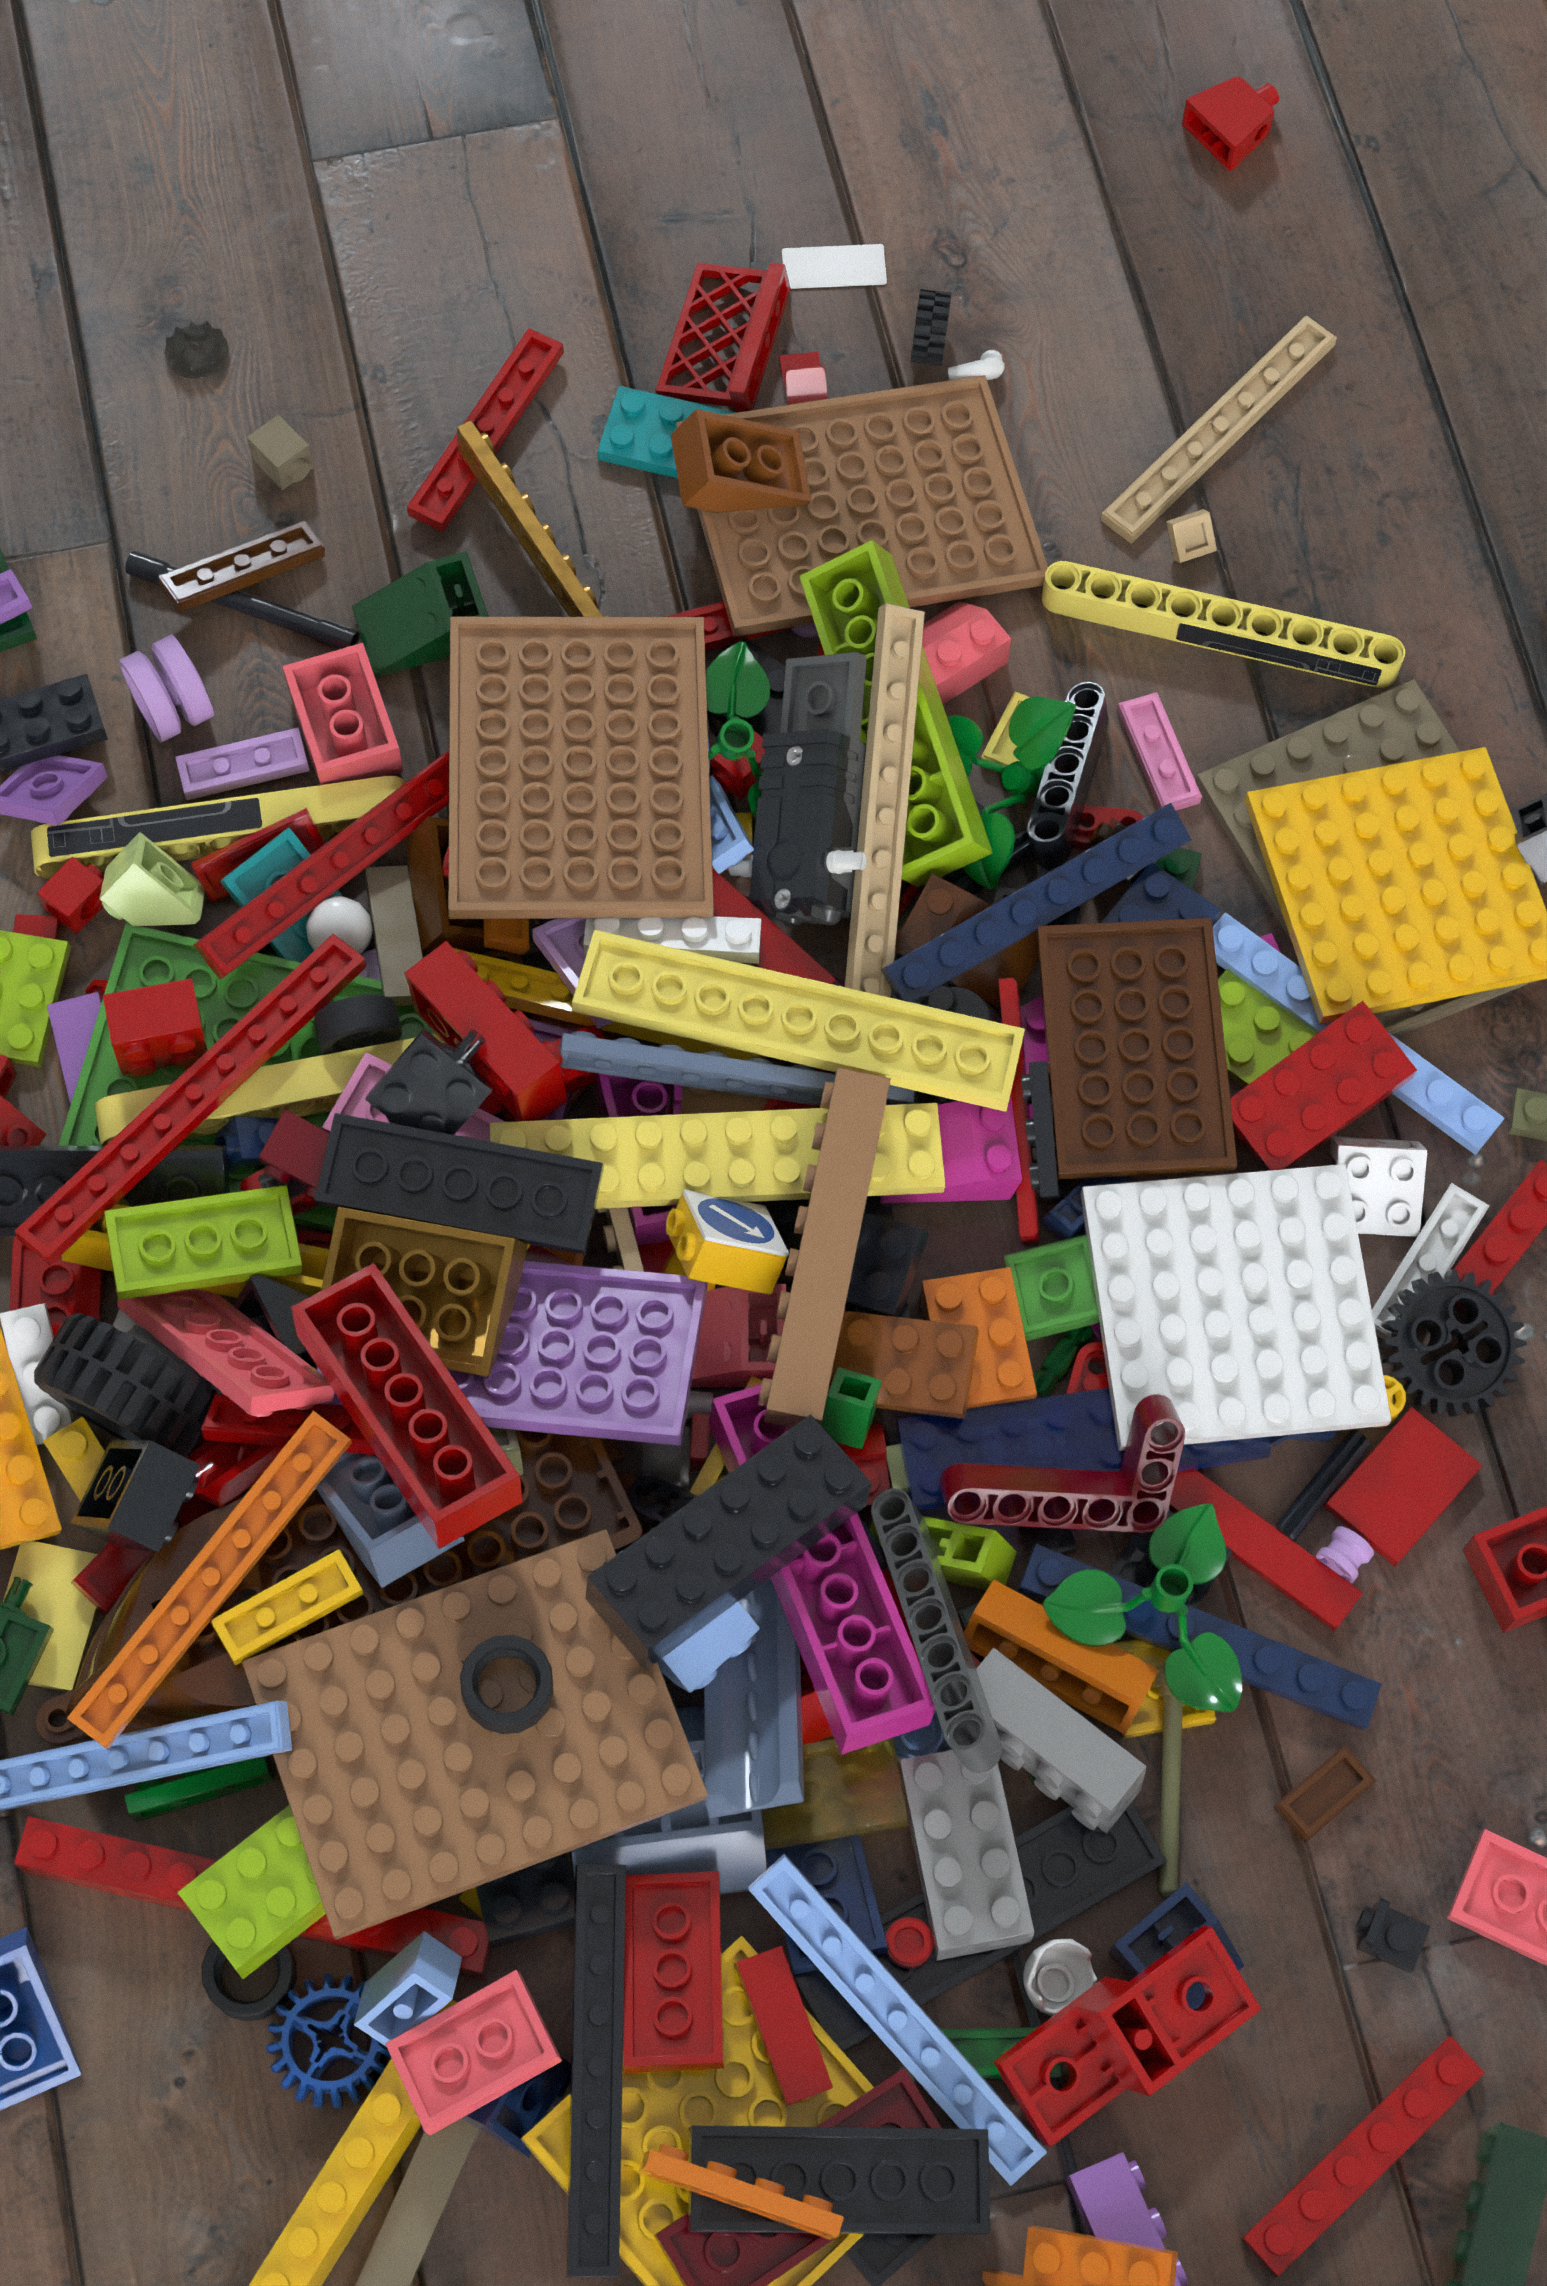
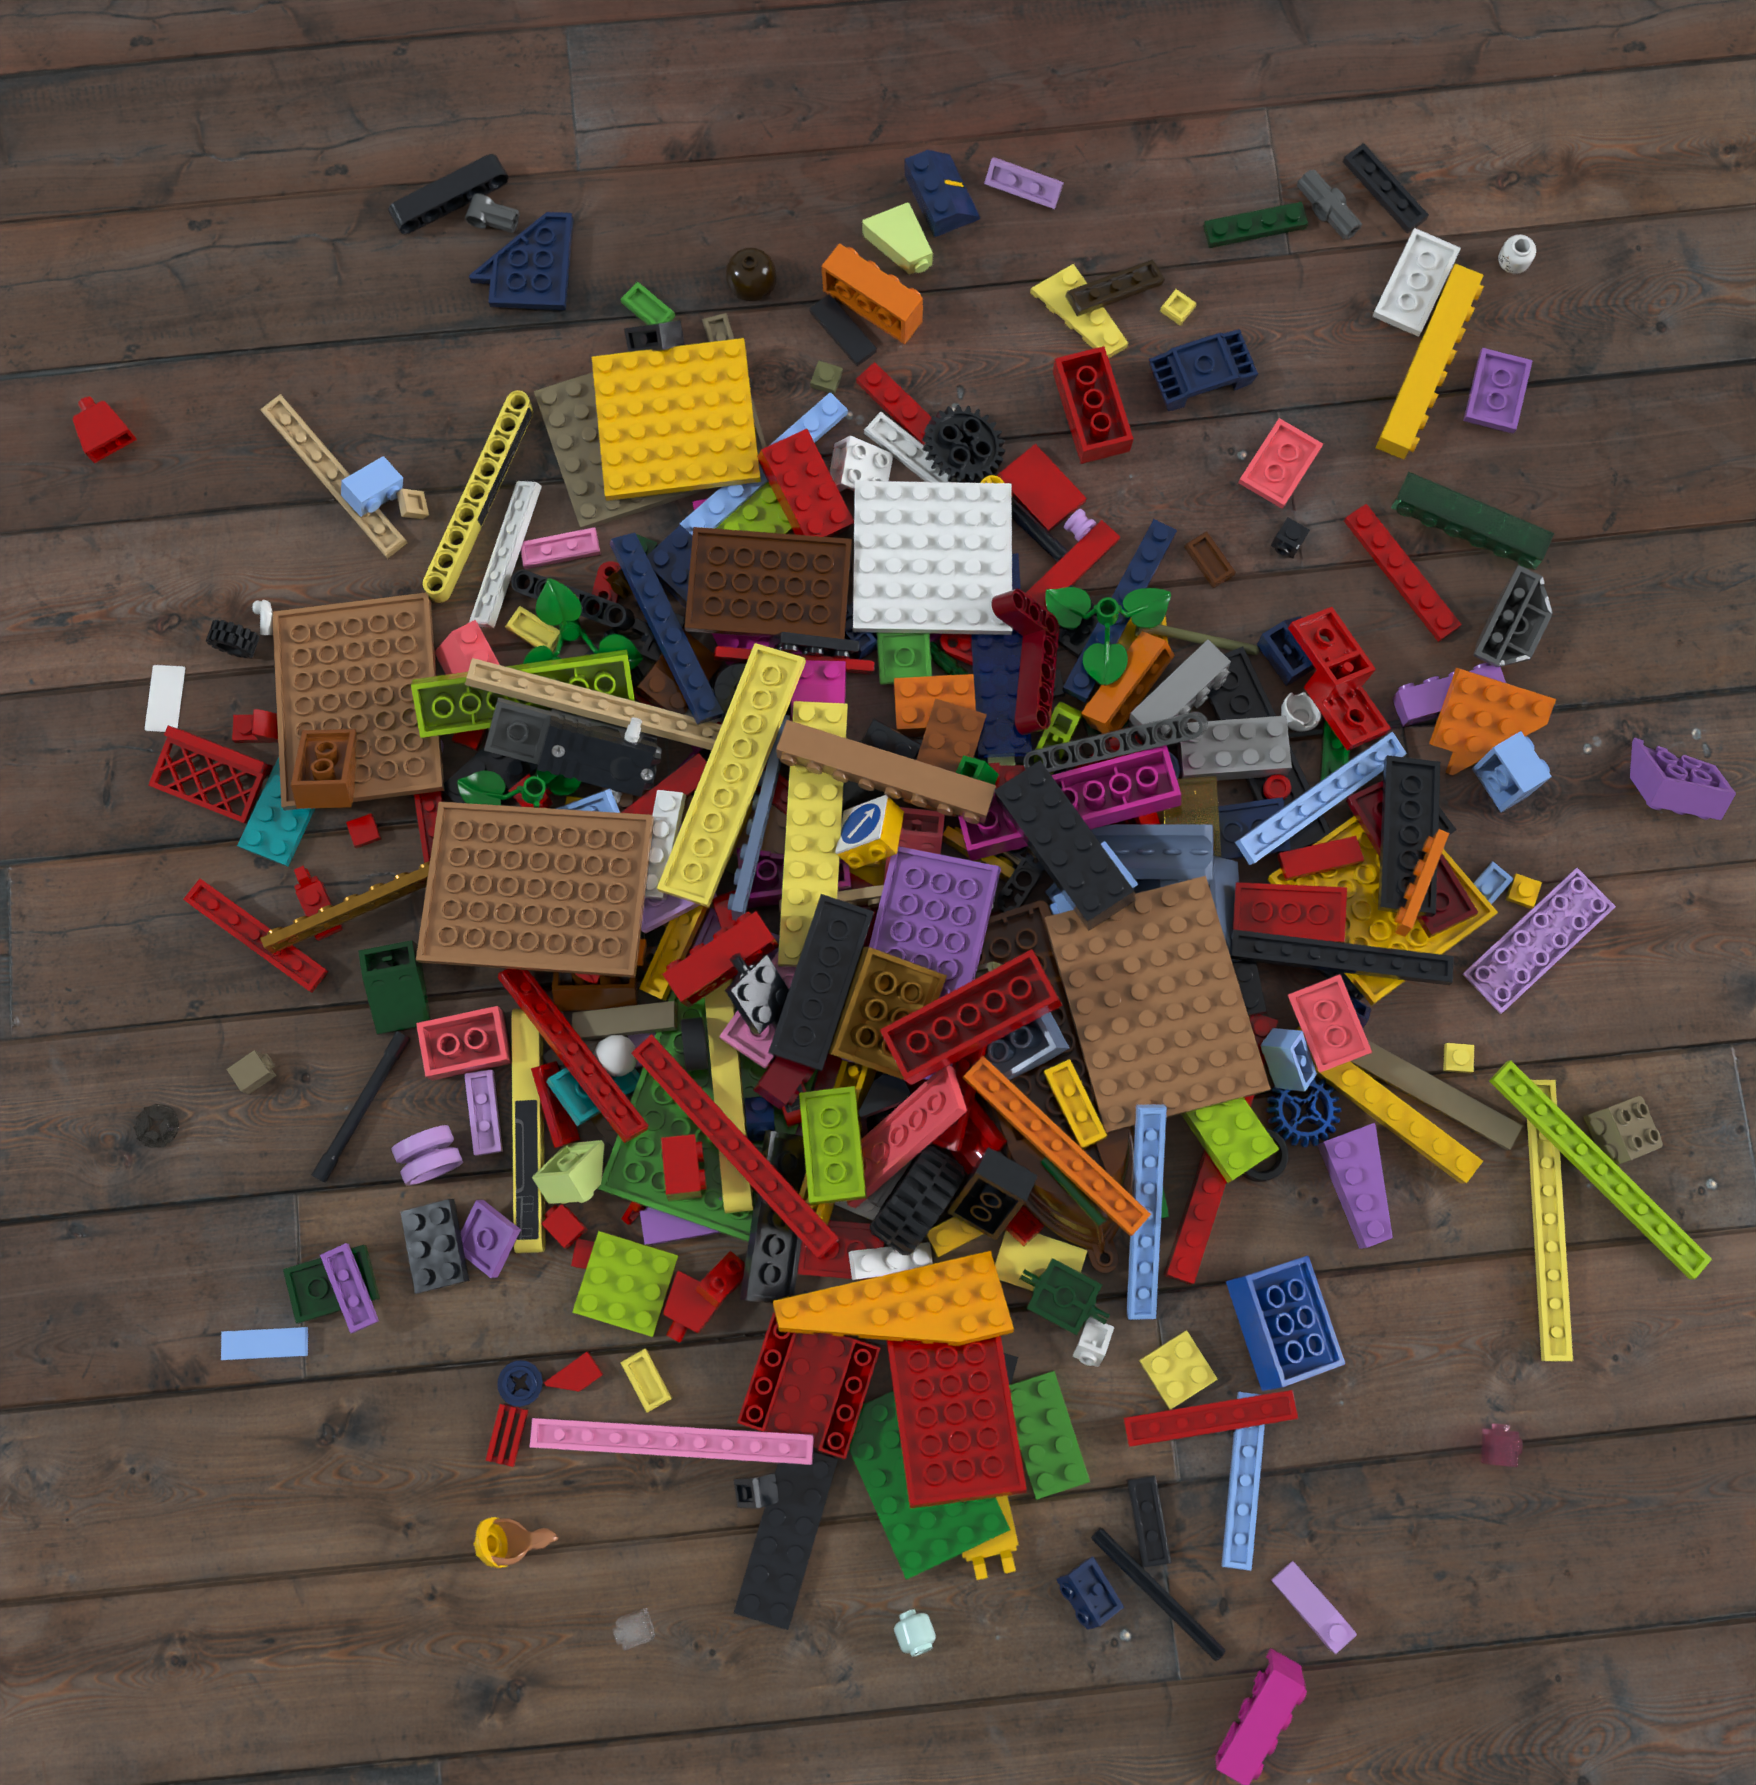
camera: 80 degrees left, 10 degrees up
(118, 1639) = (1077, 1195): none -> dark green bar
(216, 2147) = (1359, 1182): none -> medium lavender wedge
(241, 566) = (337, 1103): reddish brown tile -> none
(506, 1647) = (1139, 956): black tyre -> none
(553, 495) = (313, 897): none -> red hinge
(663, 546) = (363, 830): none -> red tile
(1135, 675) = (505, 553): none -> white tile
(1206, 473) = (371, 486): none -> light blue brick

